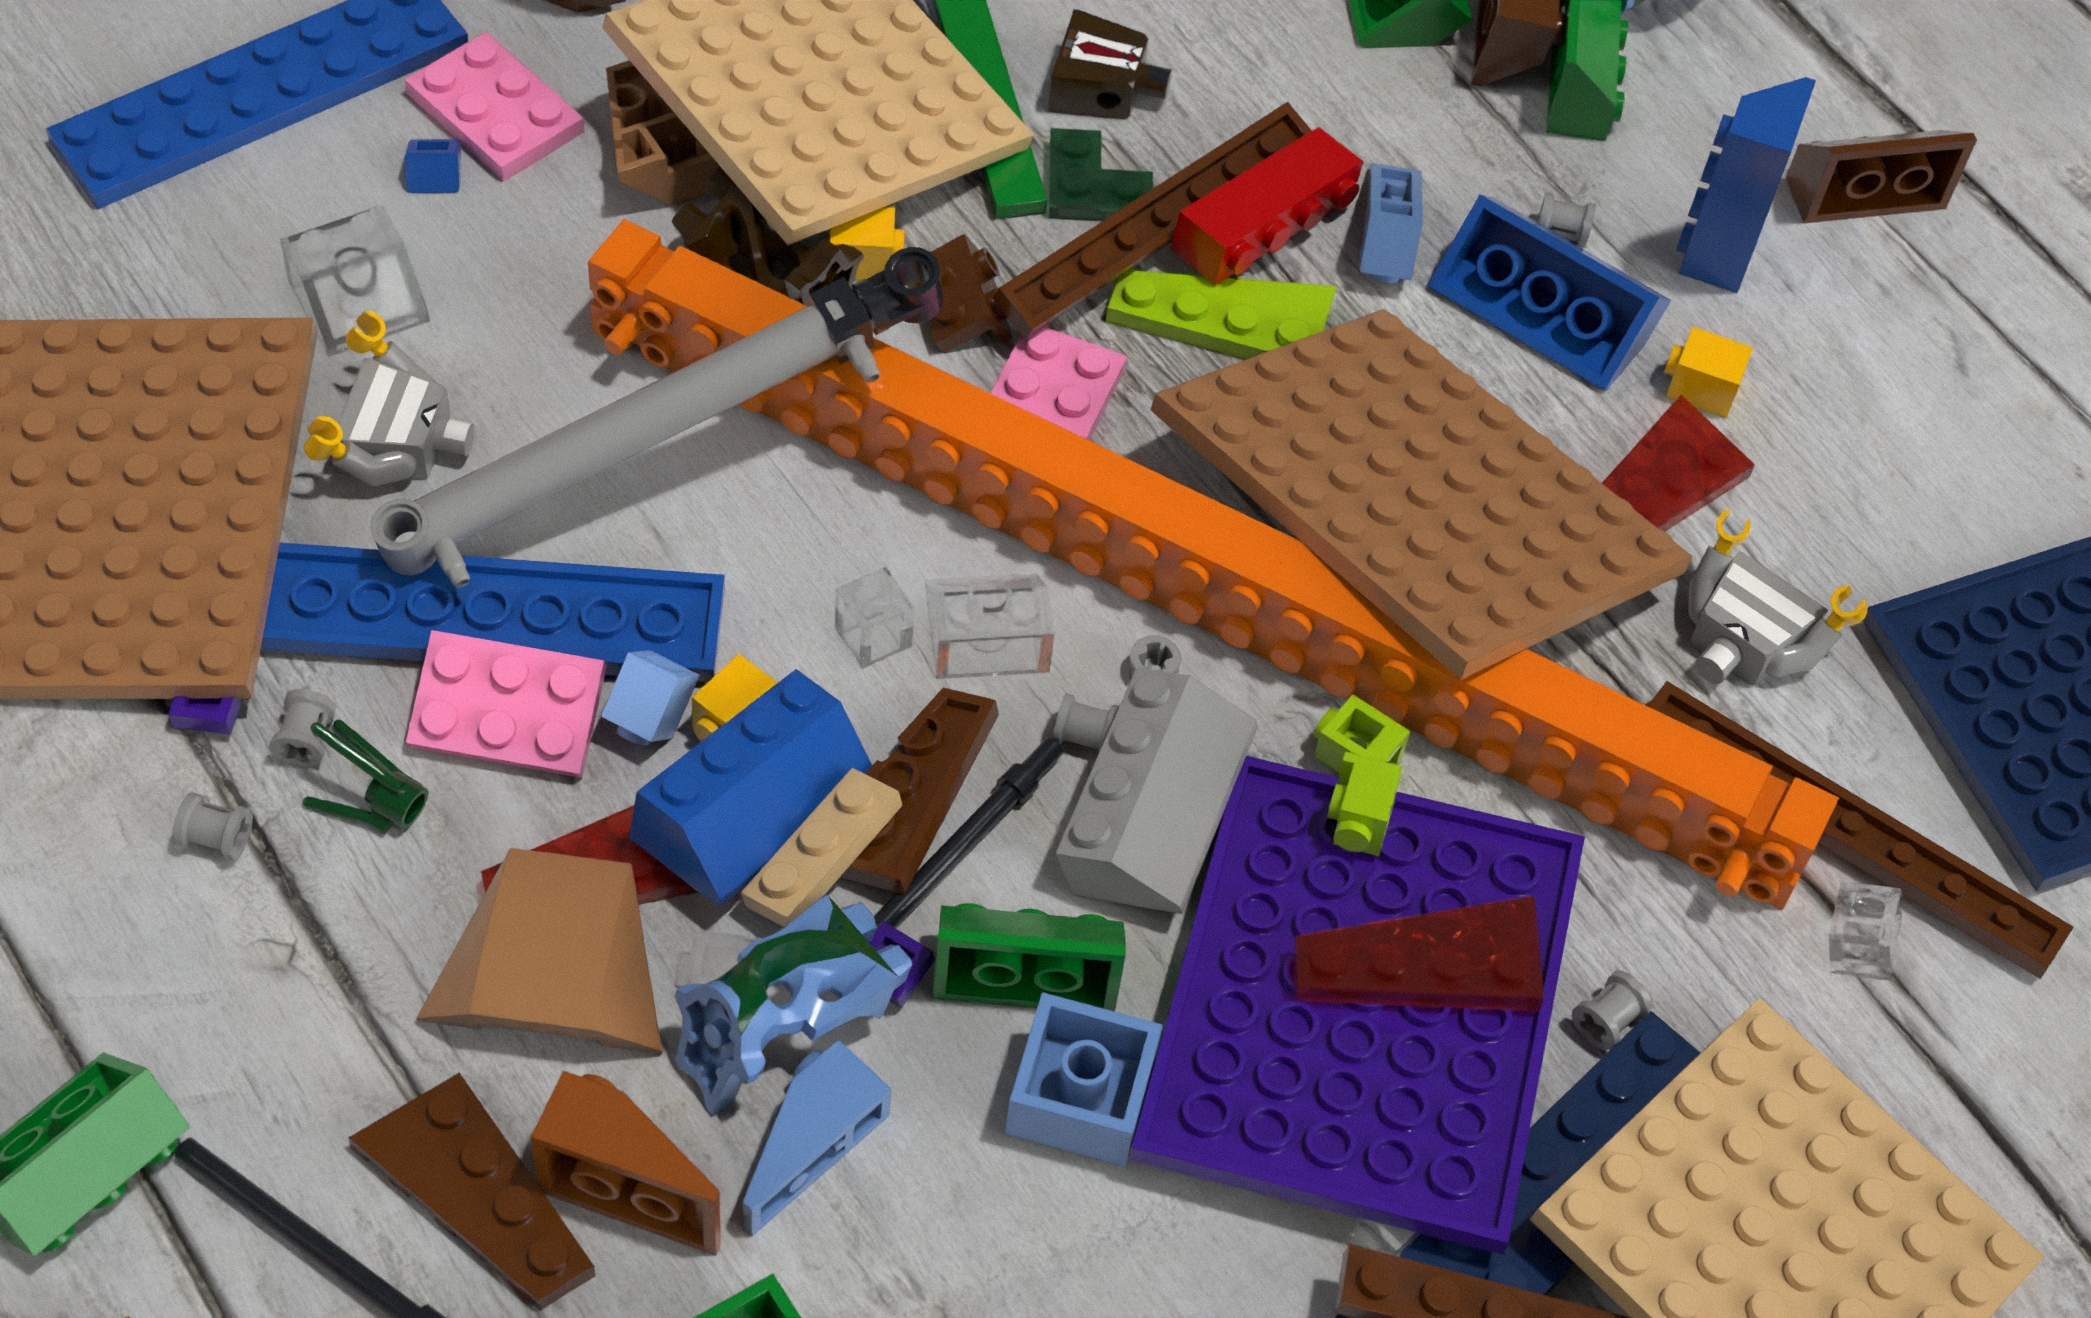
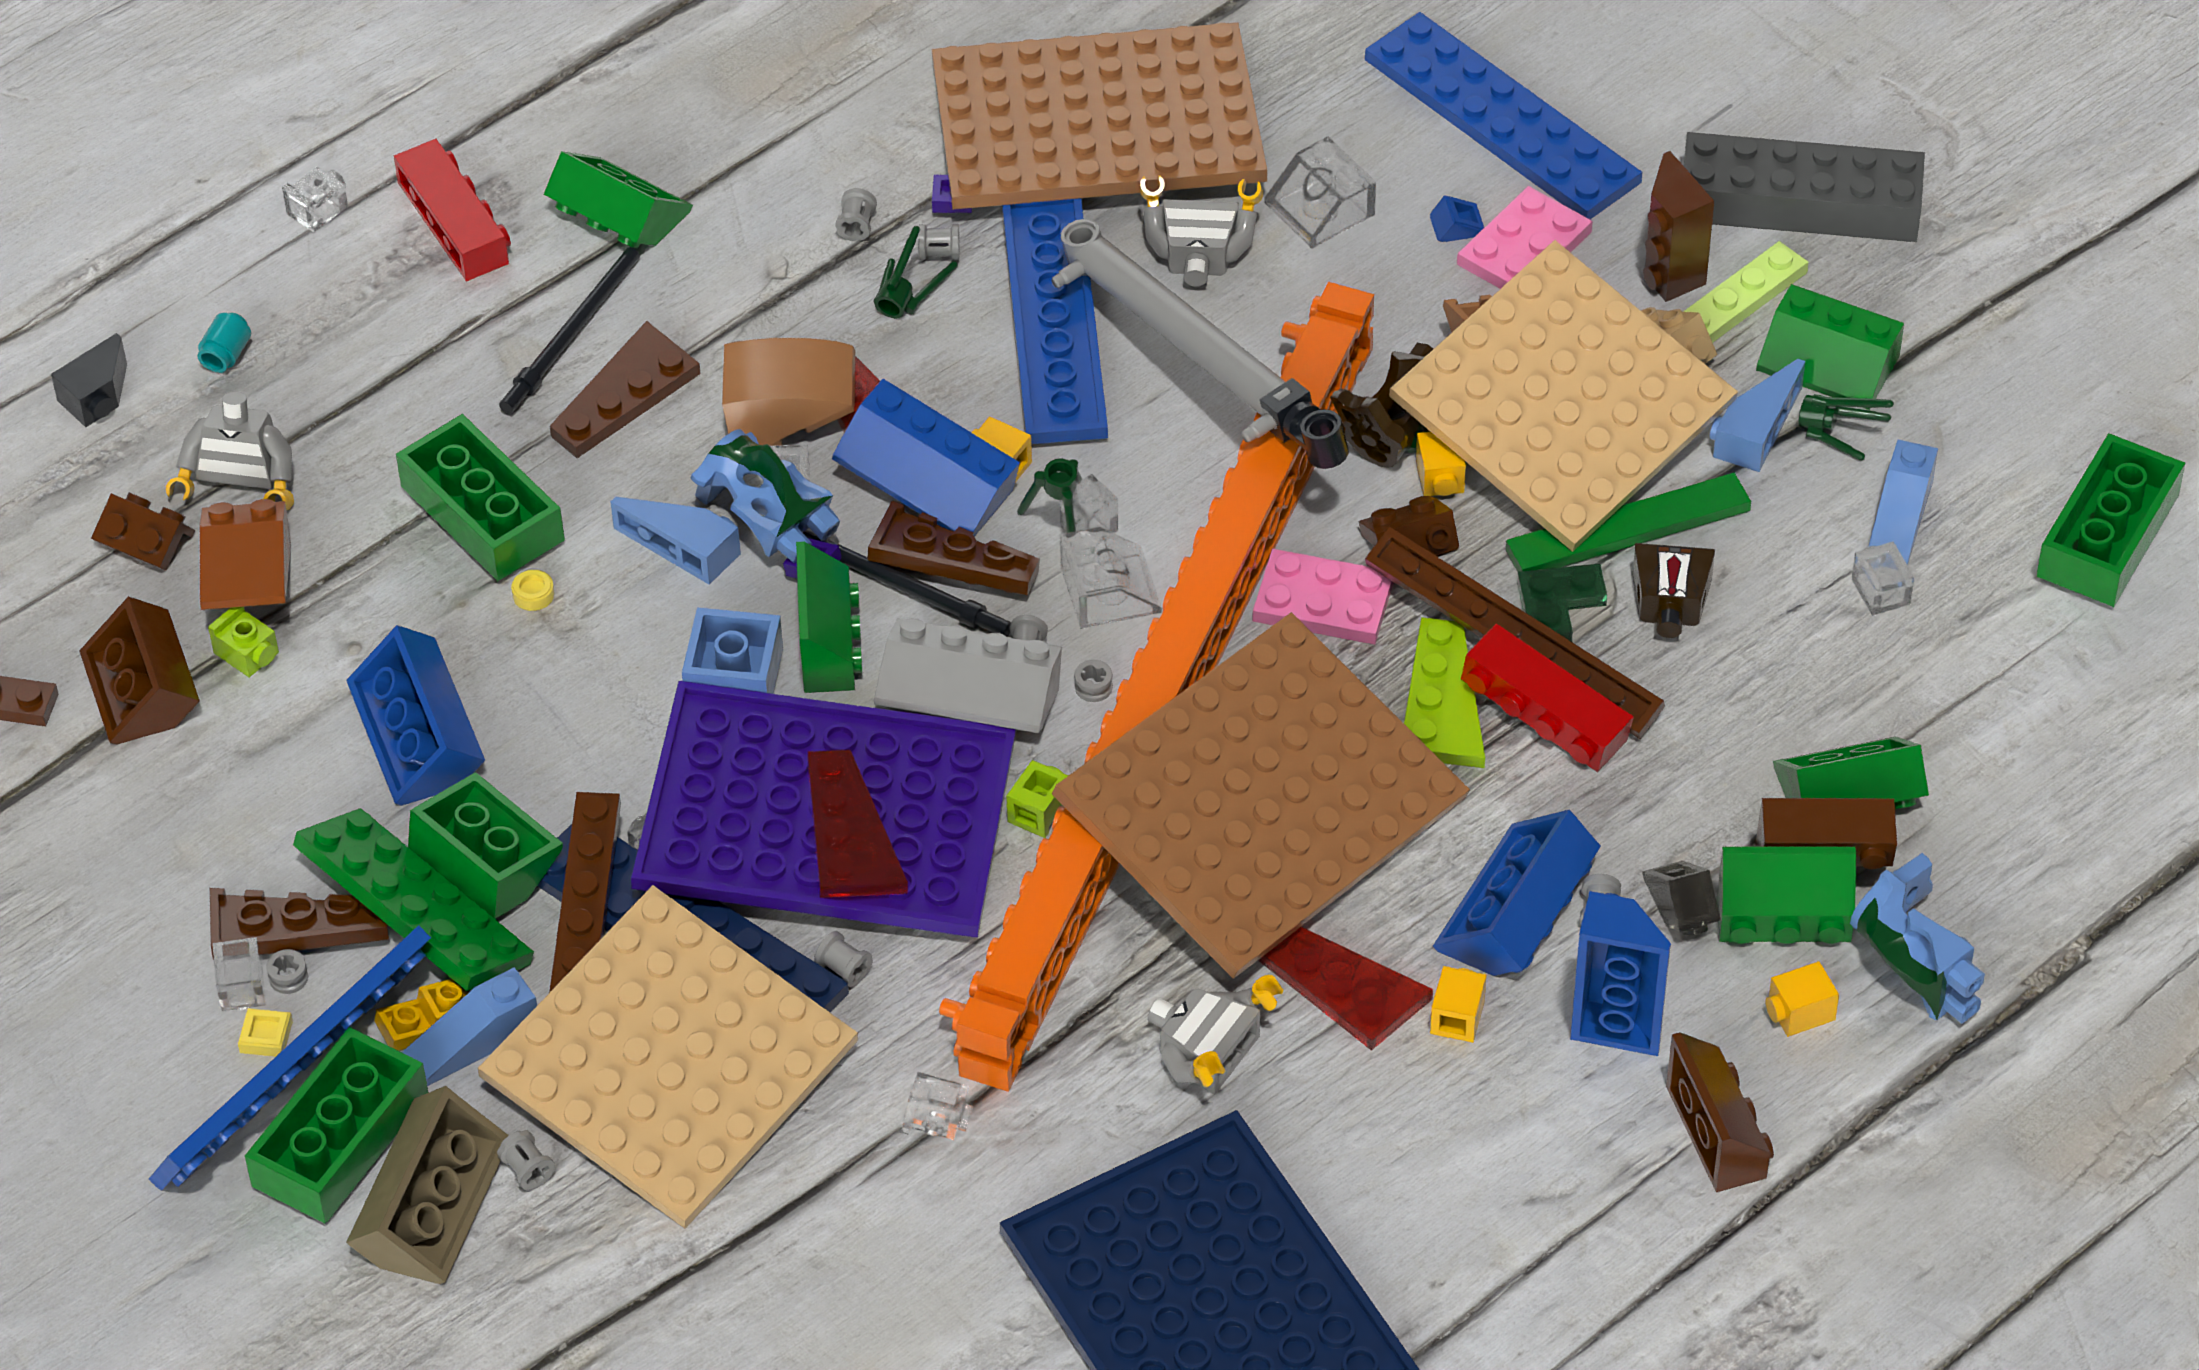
camera: 90 degrees right, 5 degrees down
(506, 704) = (976, 335): bright pink plate -> none
(613, 1160) = (635, 434): dark orange slope -> none
(649, 697) = (992, 395): light blue brick -> none
(822, 848) = (890, 507): tan plate -> none
(869, 612) = (1060, 483): none -> dark green plant
(1363, 802) = (966, 783): lime brick -> none
(1391, 223) = (1556, 781): medium blue slope -> none
(1559, 145) = (1683, 896): none -> clear smoke slope
(1710, 75) = (1802, 999): none -> yellow brick
(1898, 853) = (1028, 1106): reddish brown plate -> none

